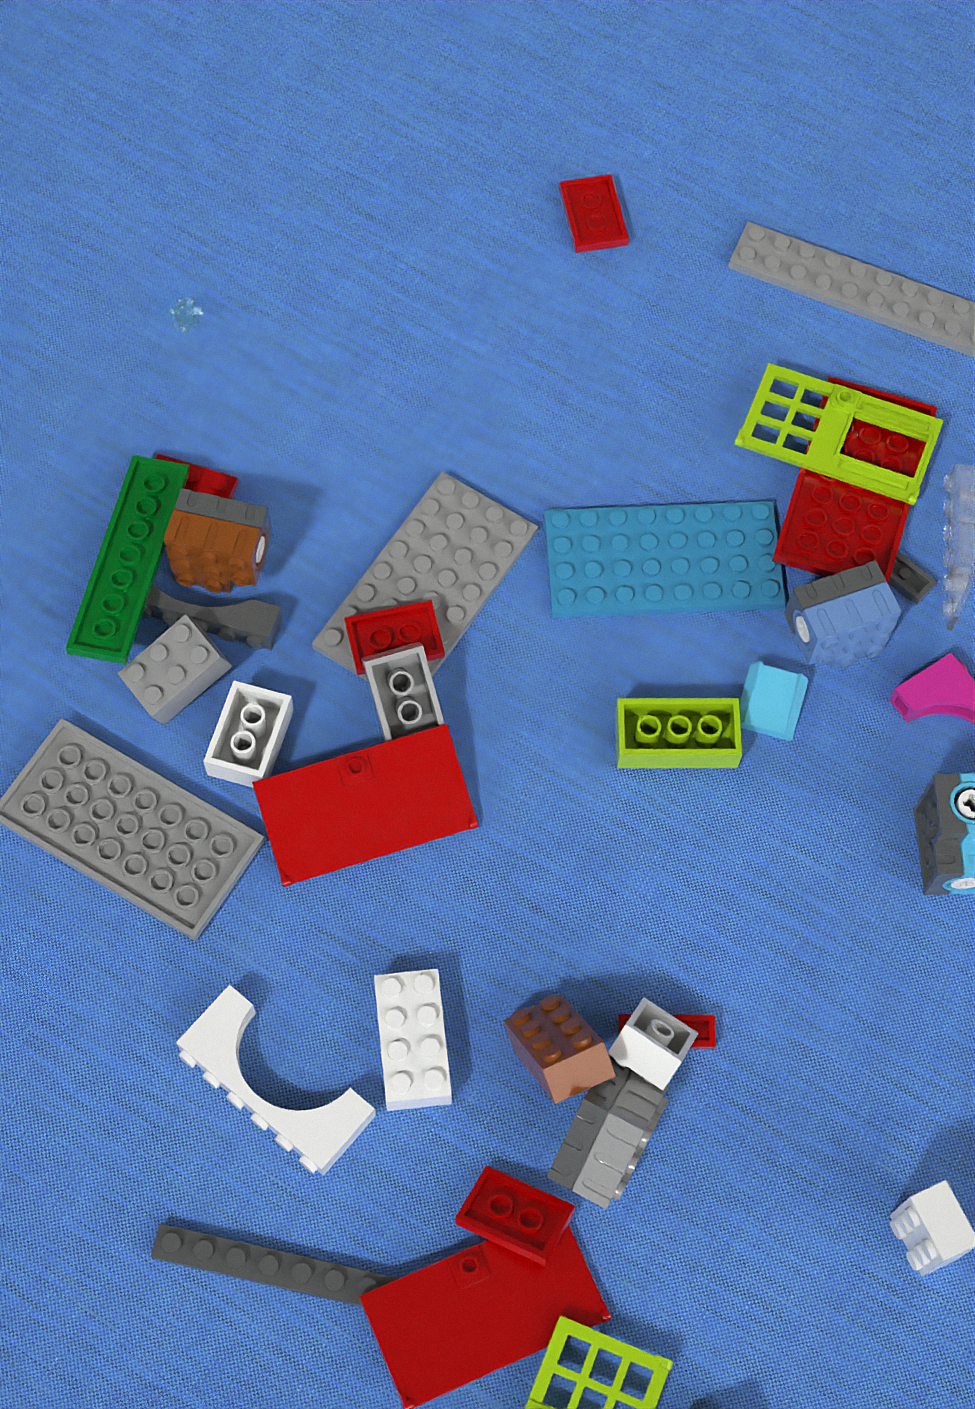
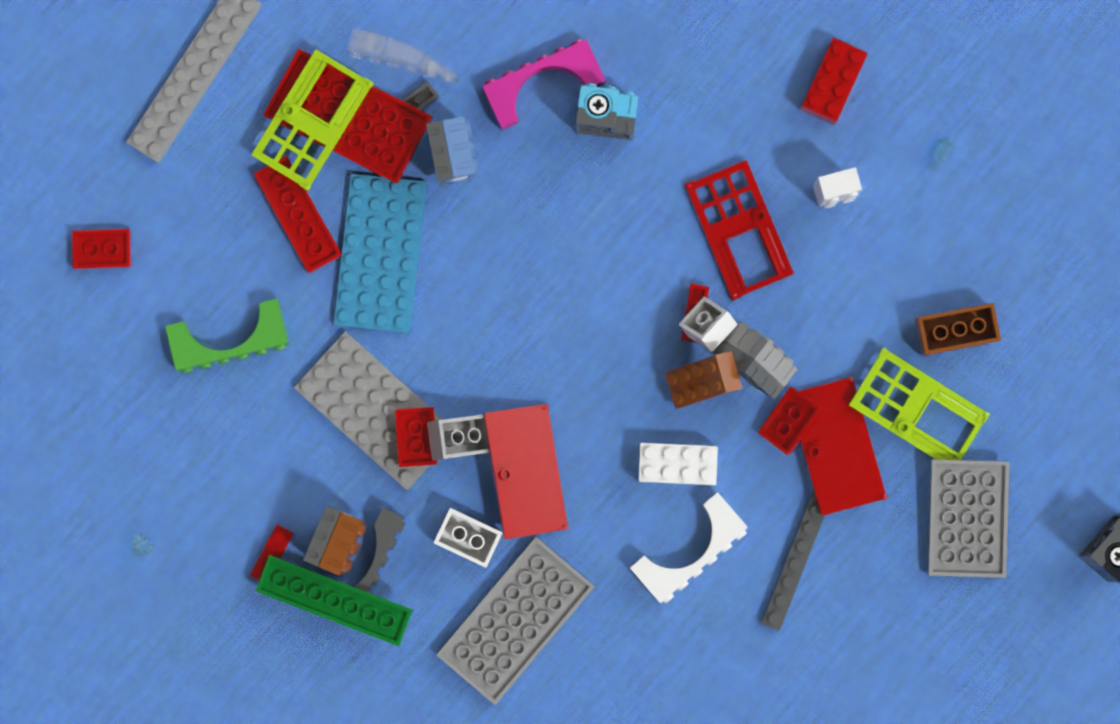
camera: 75 degrees left, 20 degrees up
(174, 669) = (417, 579): light grey brick -> none
(514, 427) = (269, 334): none -> bright green arch
(678, 733) = (508, 269): lime brick -> none
(690, 444) = (298, 217): none -> red plate
(772, 701) = (494, 206): medium azure slope -> none
(834, 1088) = (738, 224): none -> red door

